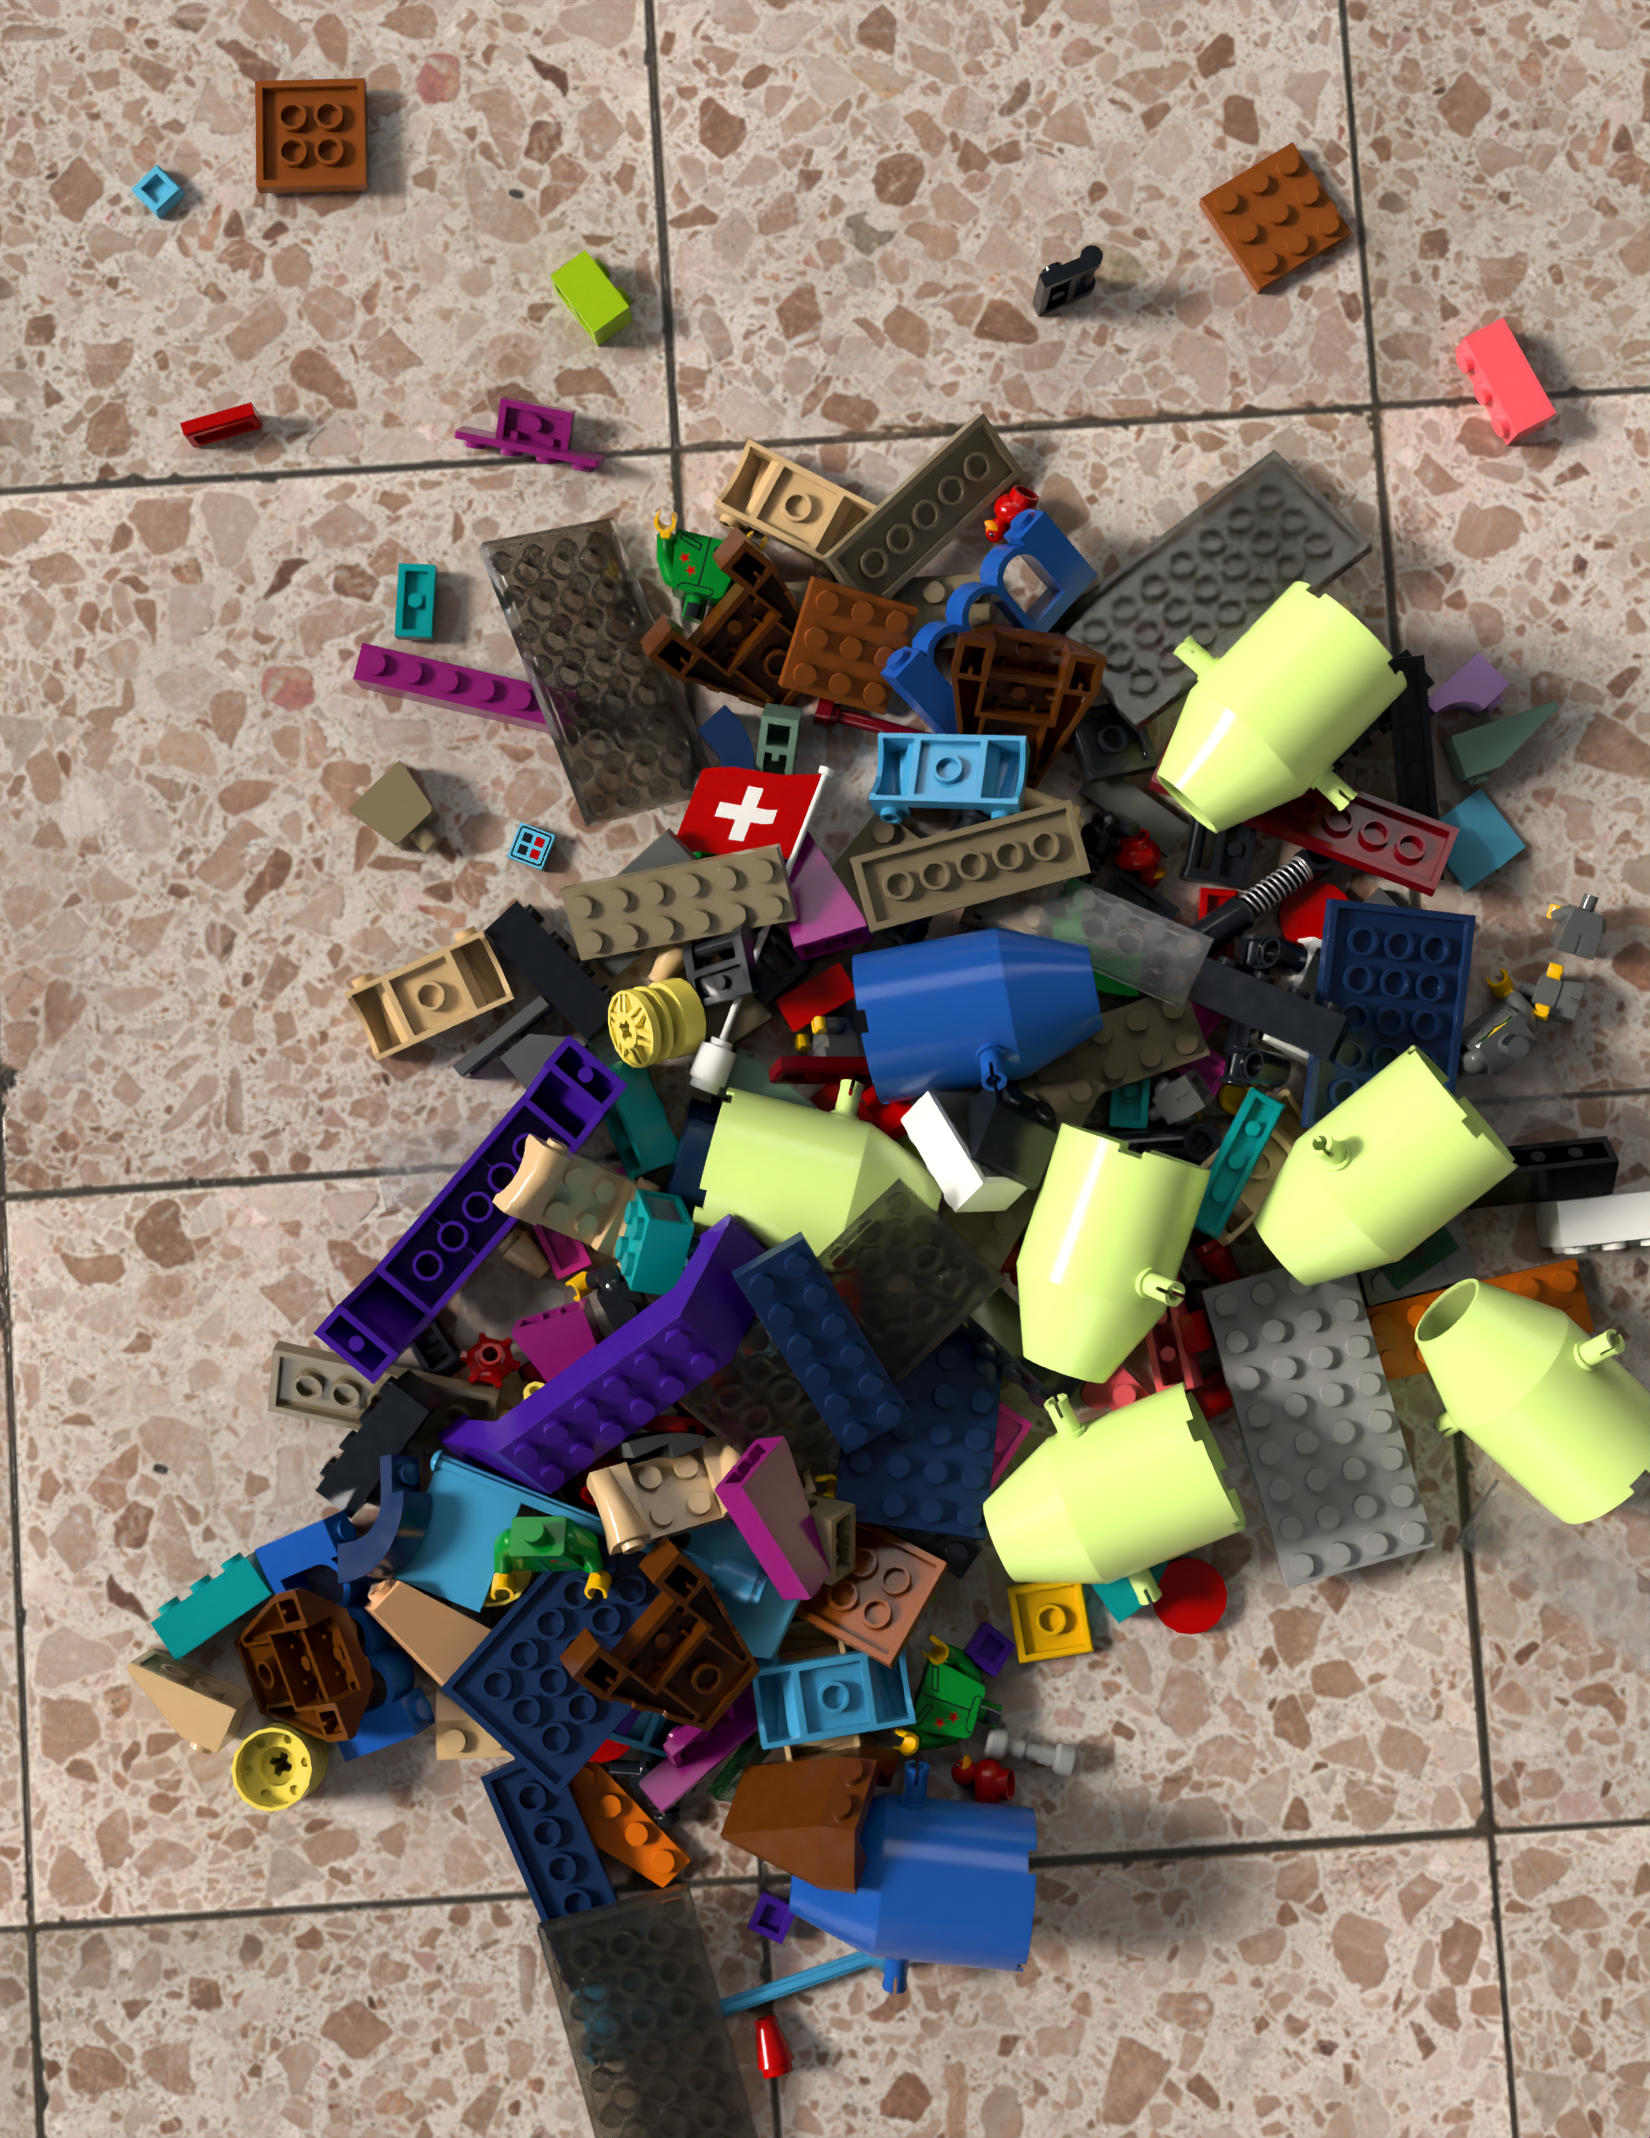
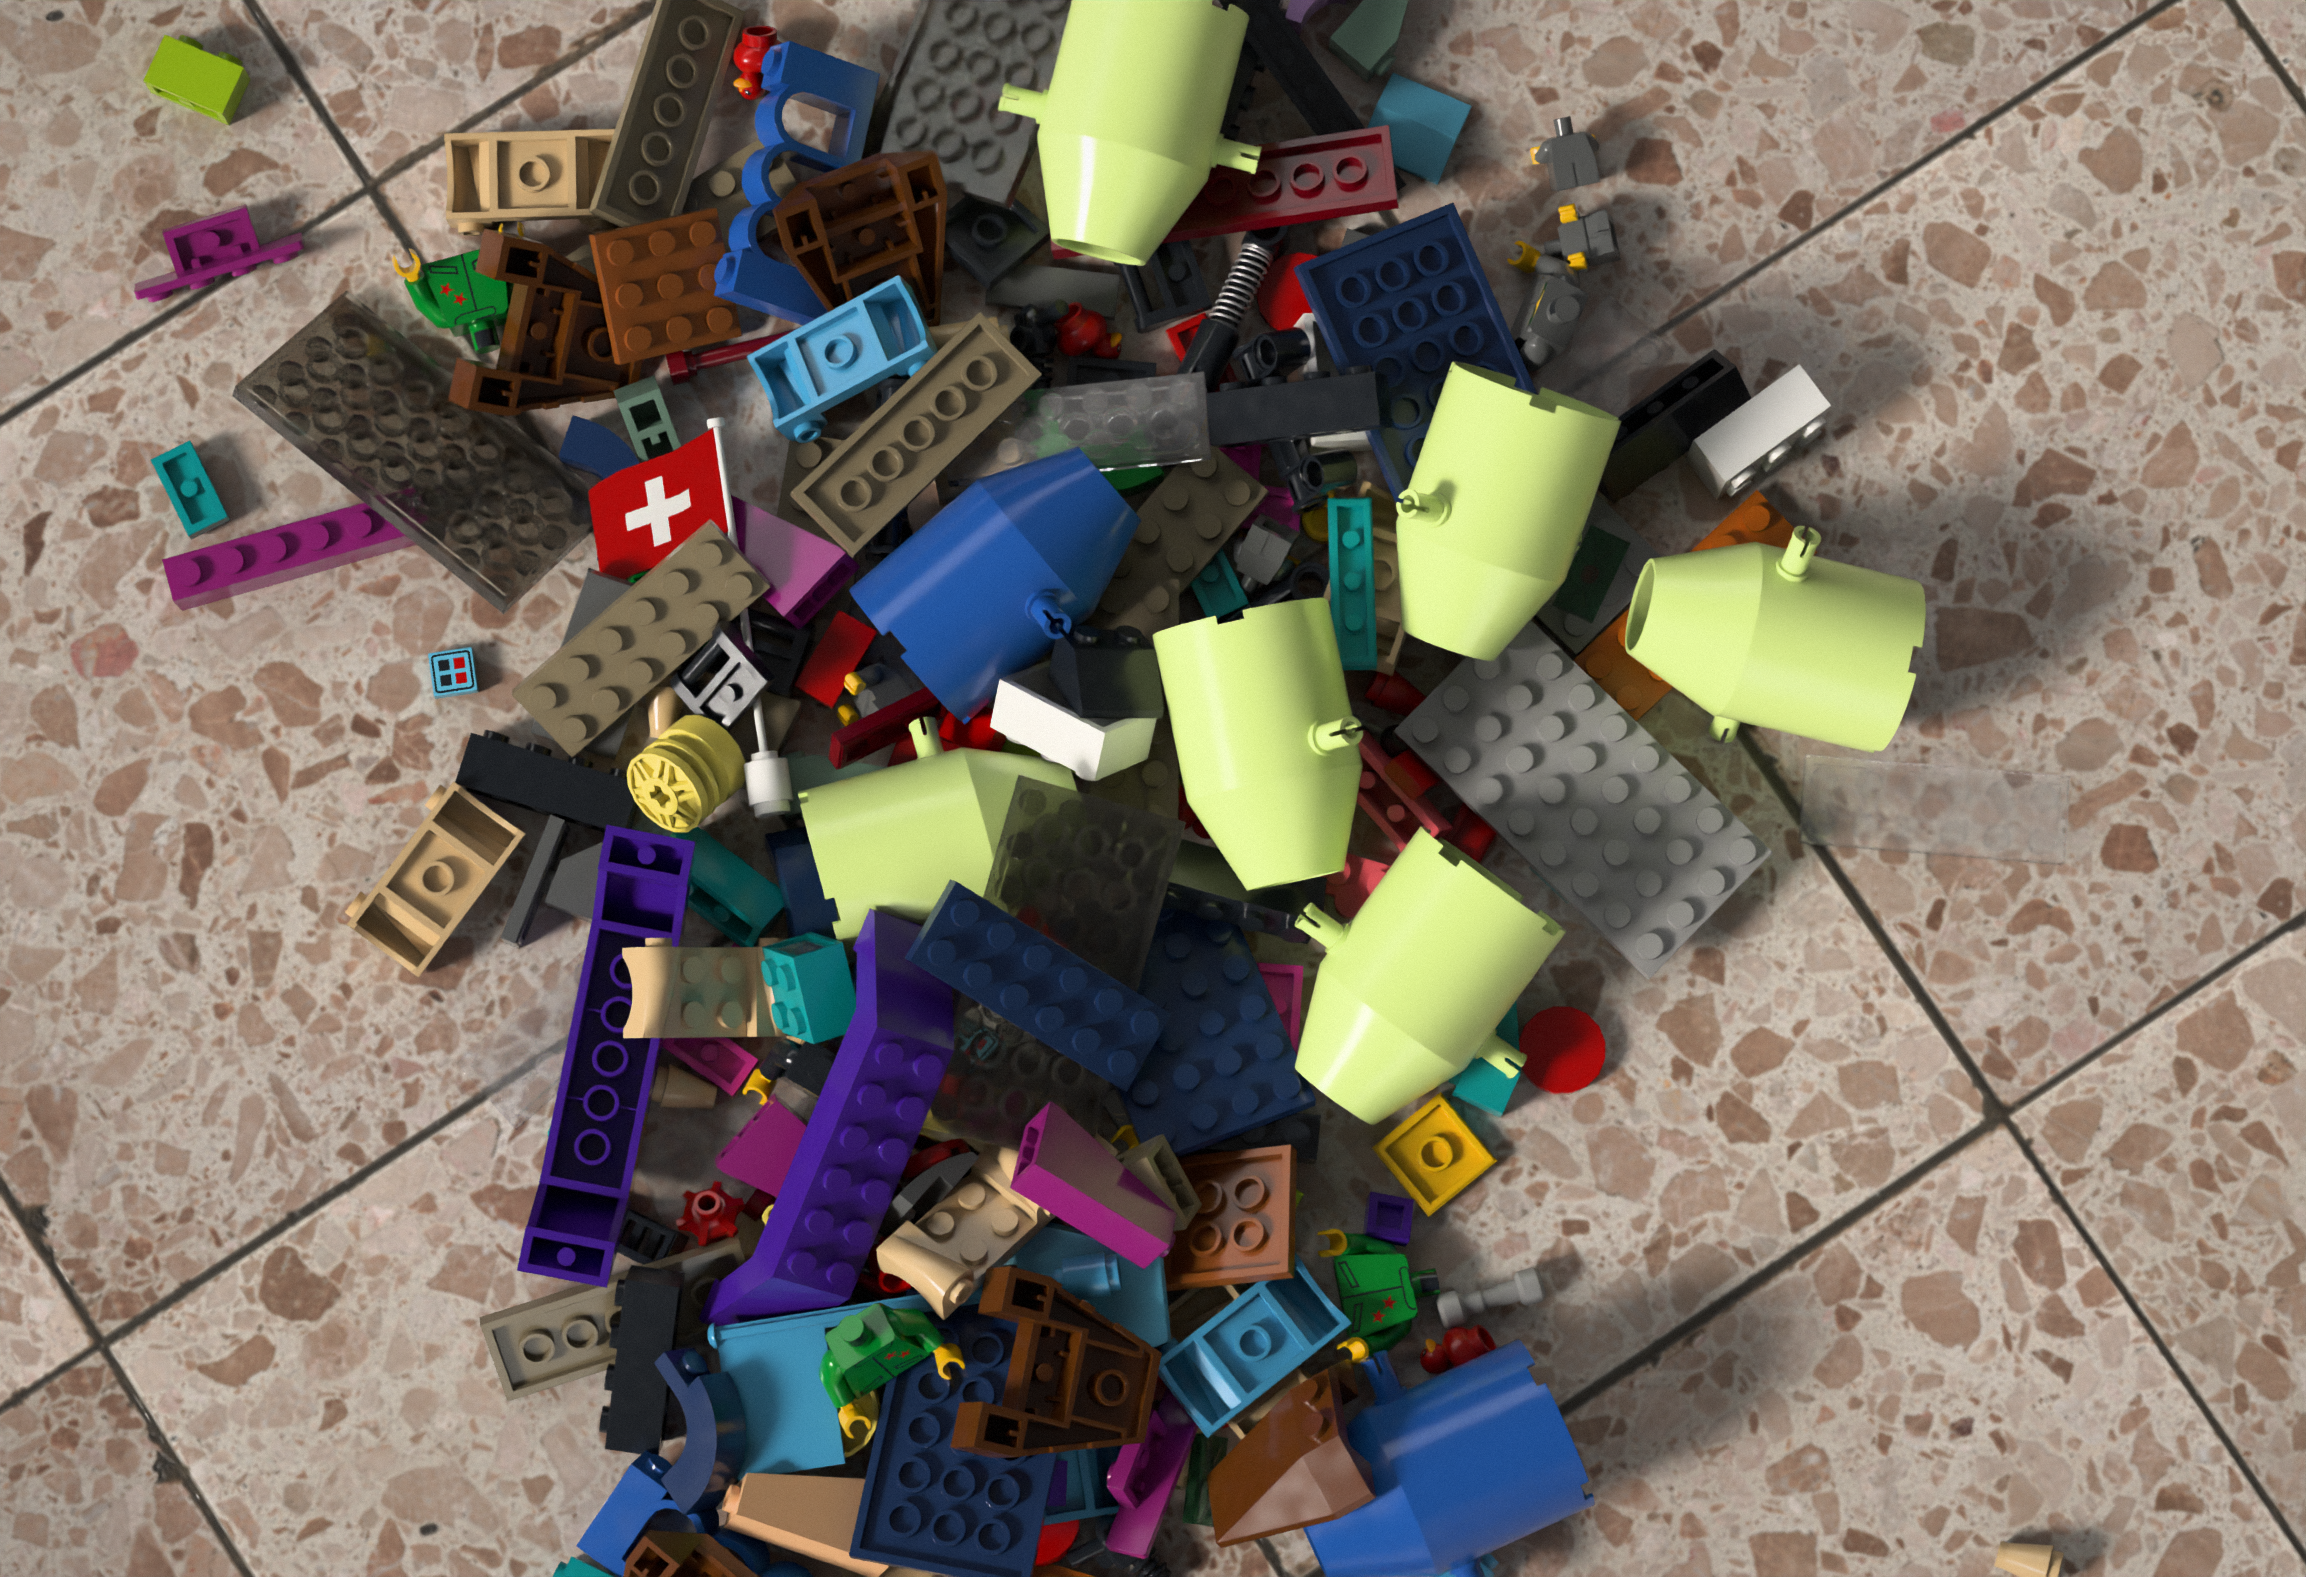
camera: 30 degrees left, 5 degrees down
(399, 810) = (294, 712): dark tan torso -> none

